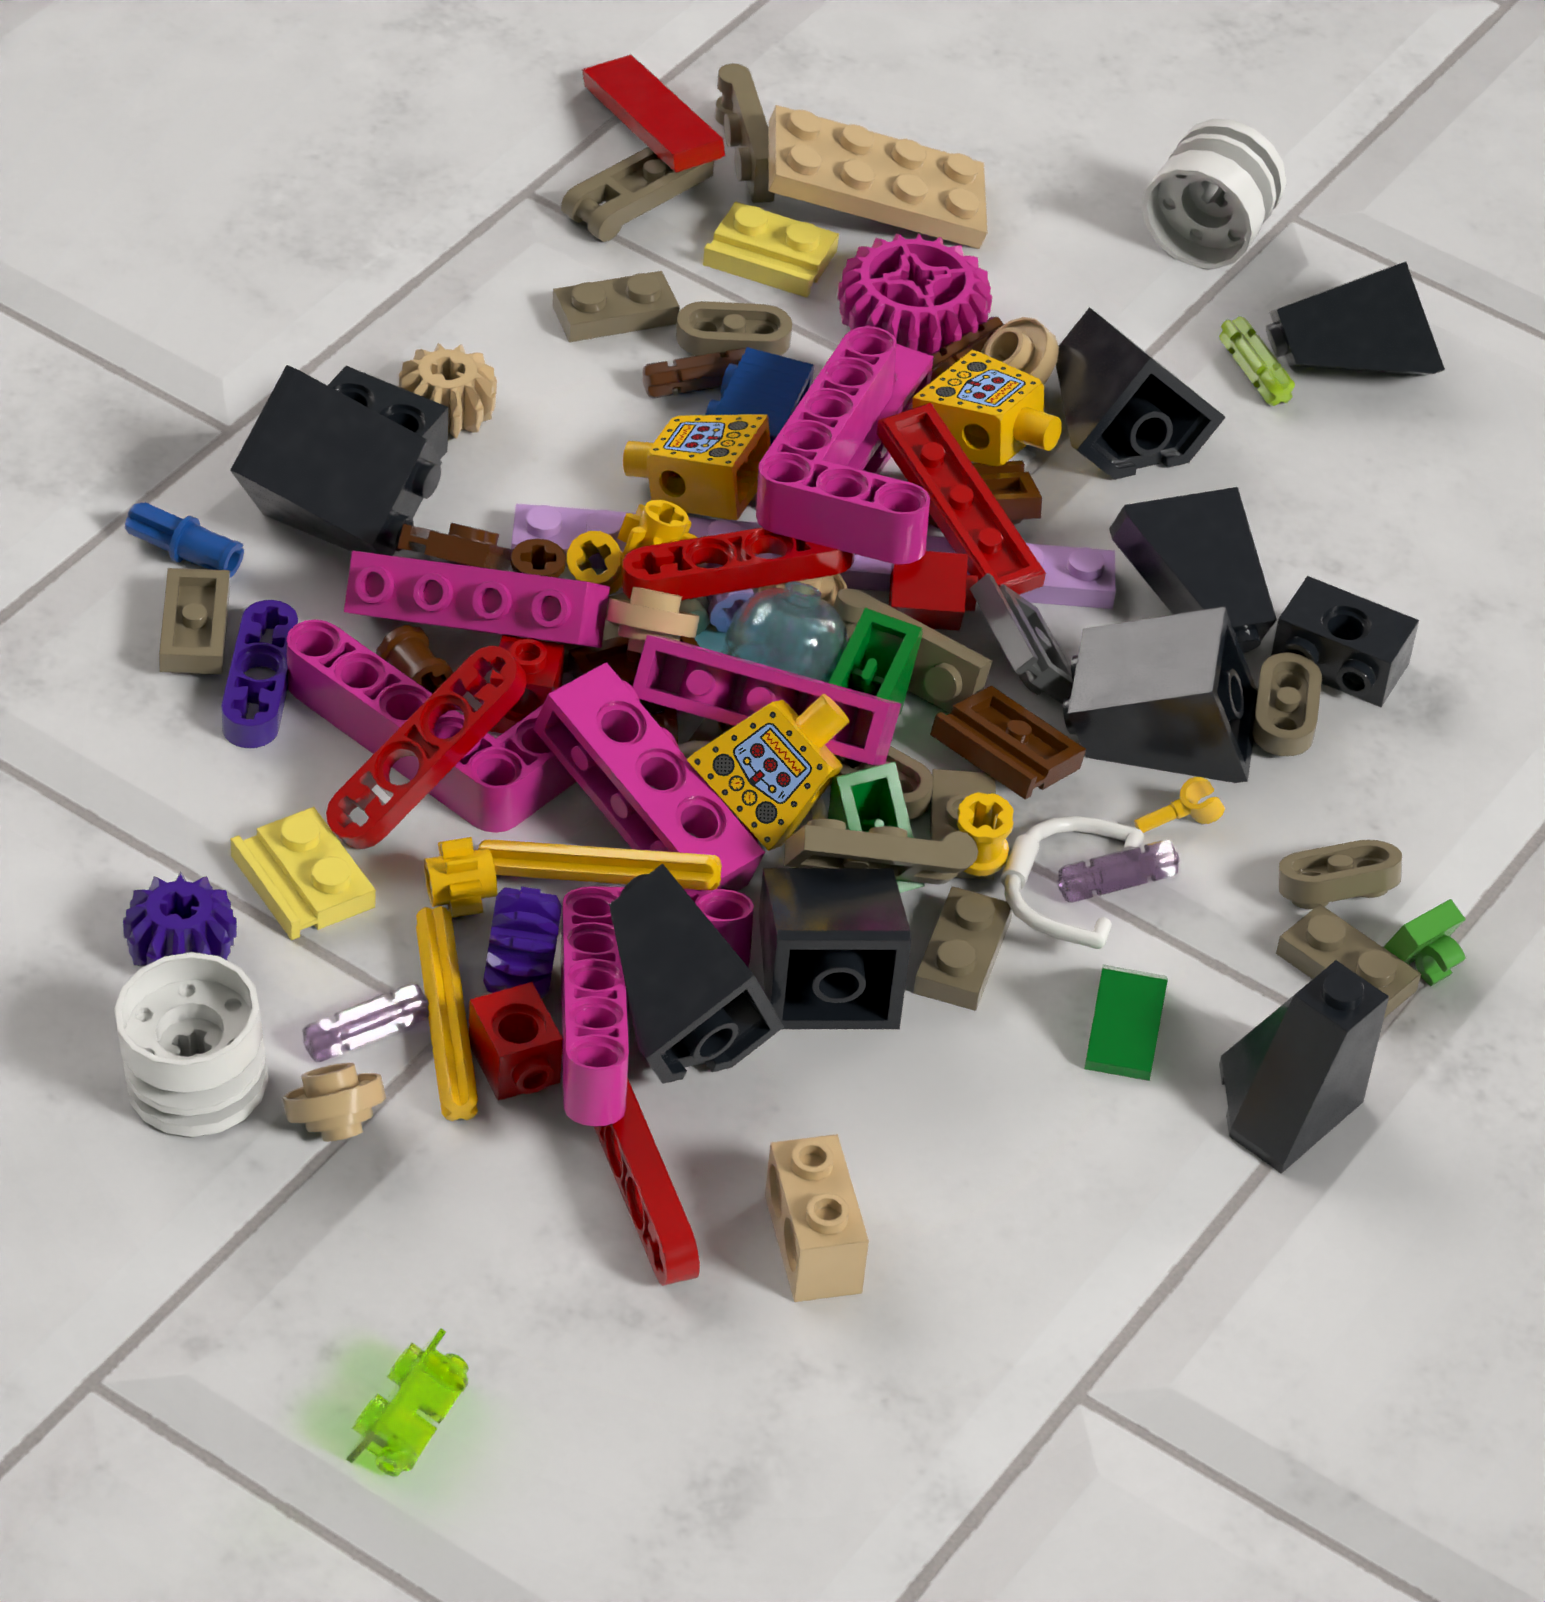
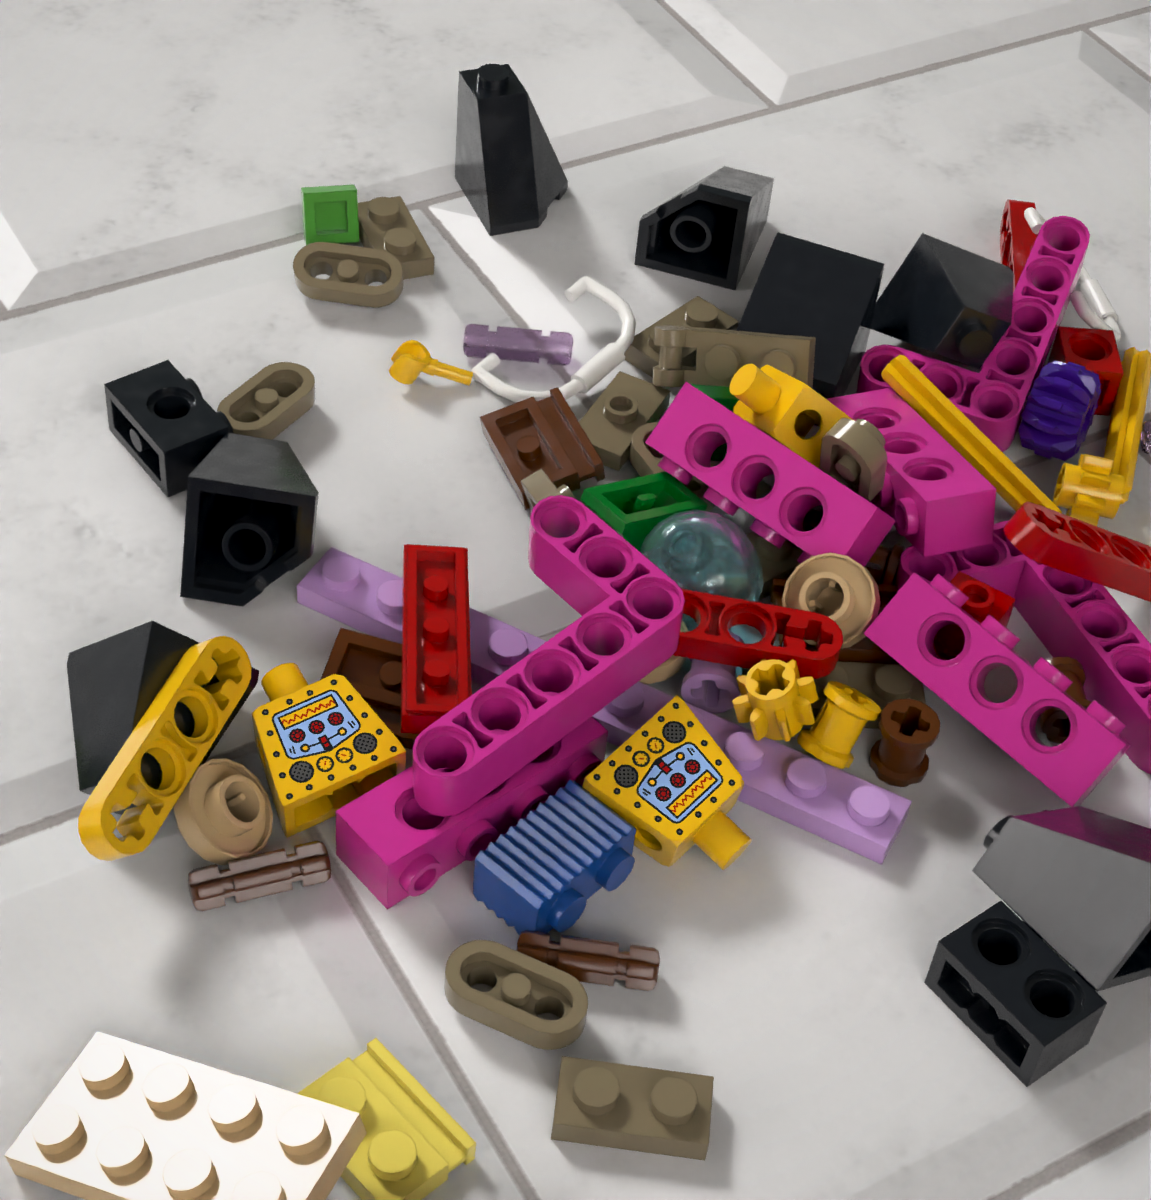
camera: 155 degrees left, 0 degrees up
(454, 381) = (912, 1018): tan gear -> none
(460, 545) = (987, 771): reddish brown plate -> none
(528, 1179) = (1090, 300): none -> white piece
(693, 692) = (855, 456): none -> dark tan plate
(816, 1218) = (909, 198): tan brick -> none
(915, 292) = (299, 979): dark pink gear -> none
(934, 589) = (511, 590): red brick -> none
(978, 818) = (632, 356): yellow bush -> none
(1016, 1070) = (707, 228): none -> black slope
(1024, 639) = (466, 504): dark grey plate -> none
(1065, 286) = (173, 750): none -> yellow beam
(1126, 1022) = (585, 249): green slope -> none
(1165, 695) = (381, 421): black slope -> none

